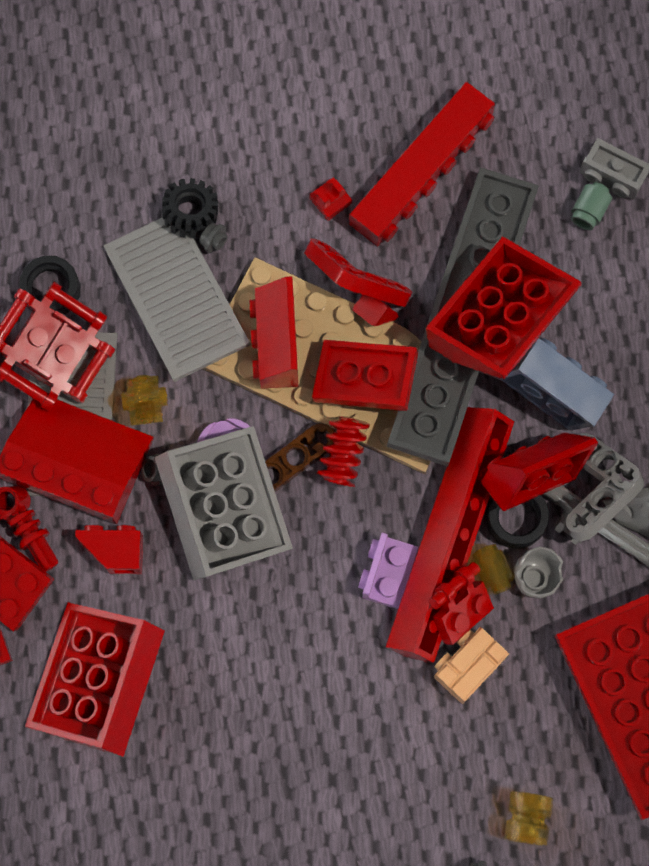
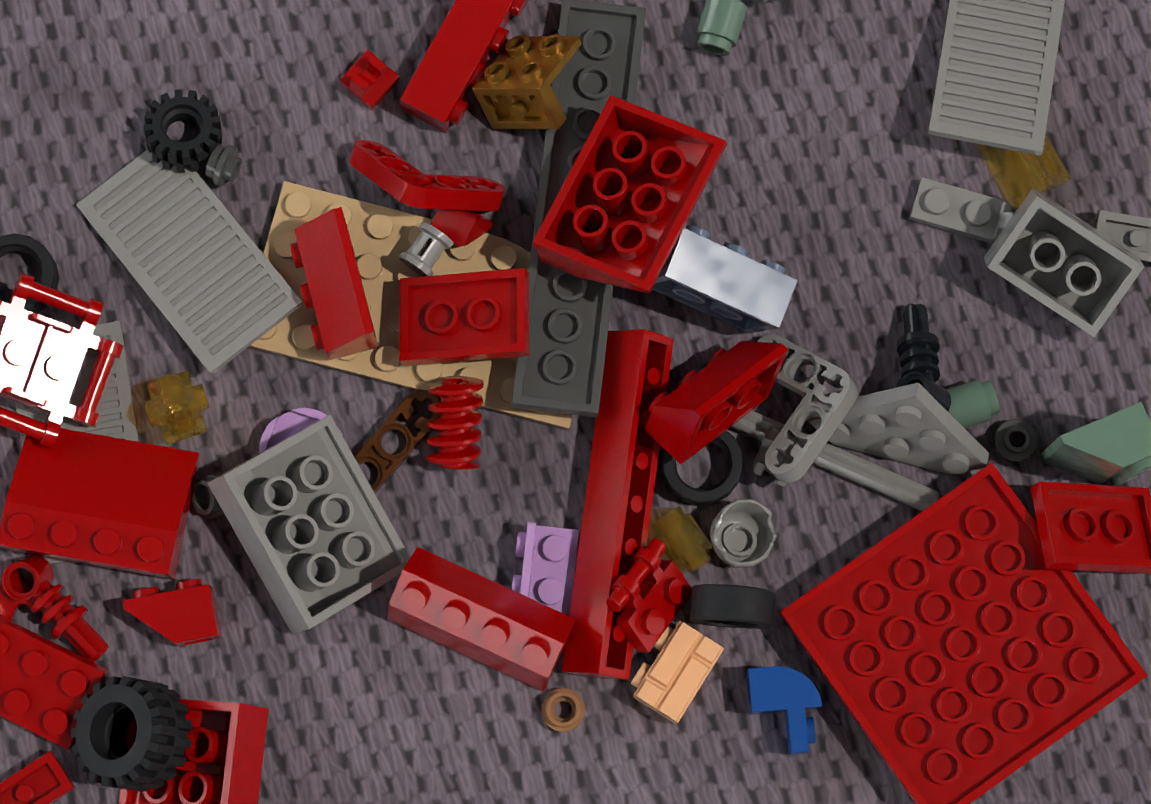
camera: 15 degrees left, 5 degrees up
(80, 633) = (104, 728): none -> black tyre
(332, 595) = (479, 618): none -> red slope
(346, 322) = (425, 250): none -> light grey bush
(380, 665) = (570, 697): none -> medium nougat plate
(436, 222) = (518, 83): none -> pearl gold bracket
(520, 623) = (731, 606): none -> black tyre
(550, 695) = (785, 691): none -> blue brick

